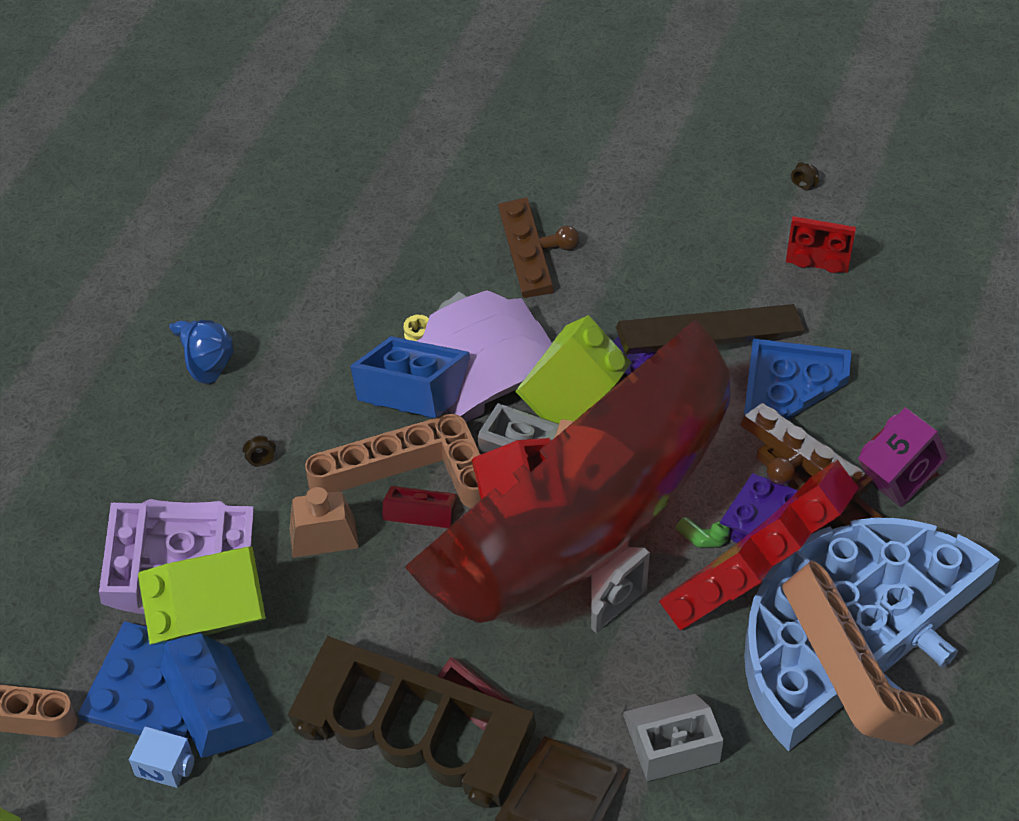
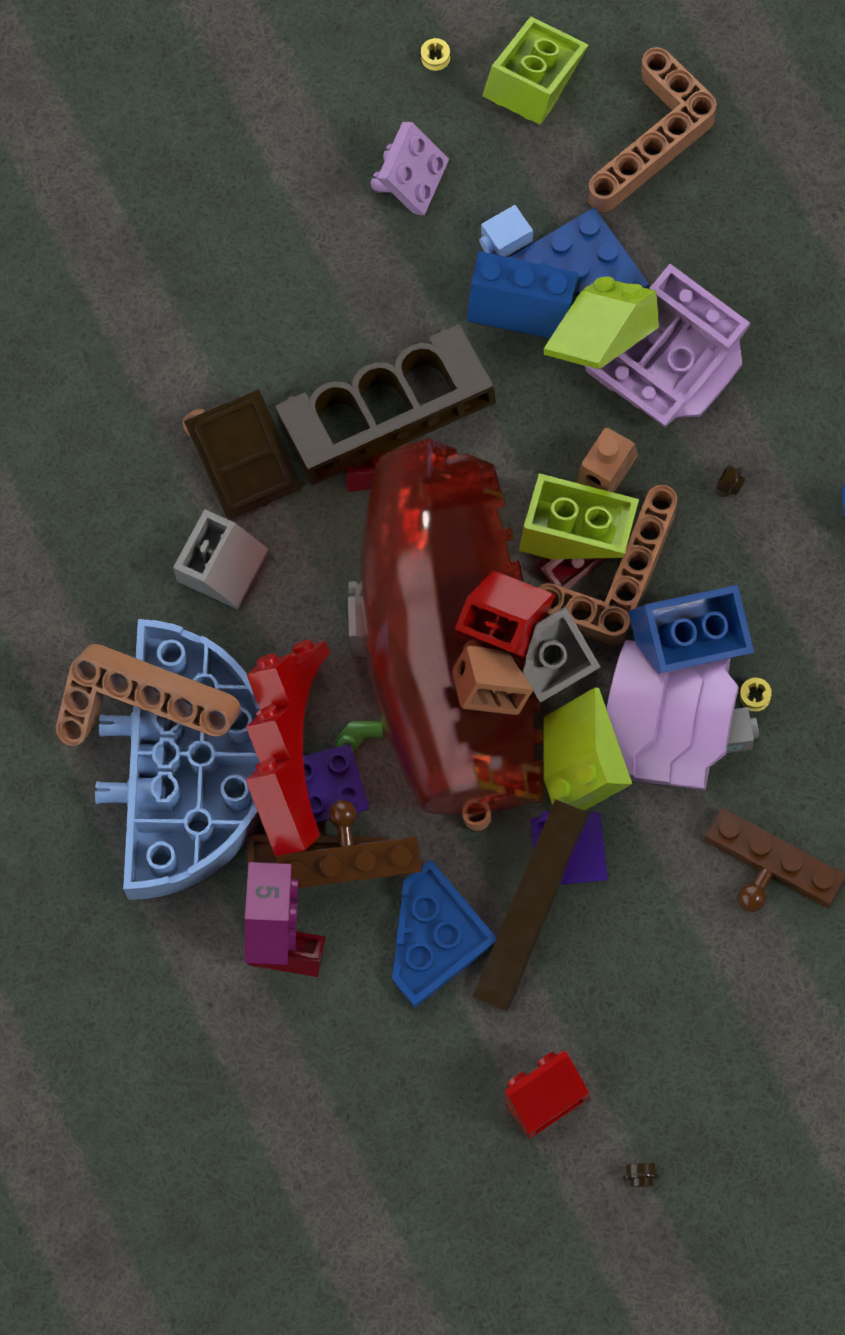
camera: 135 degrees right, 20 degrees up
(392, 503) = (576, 521): none -> lime slope

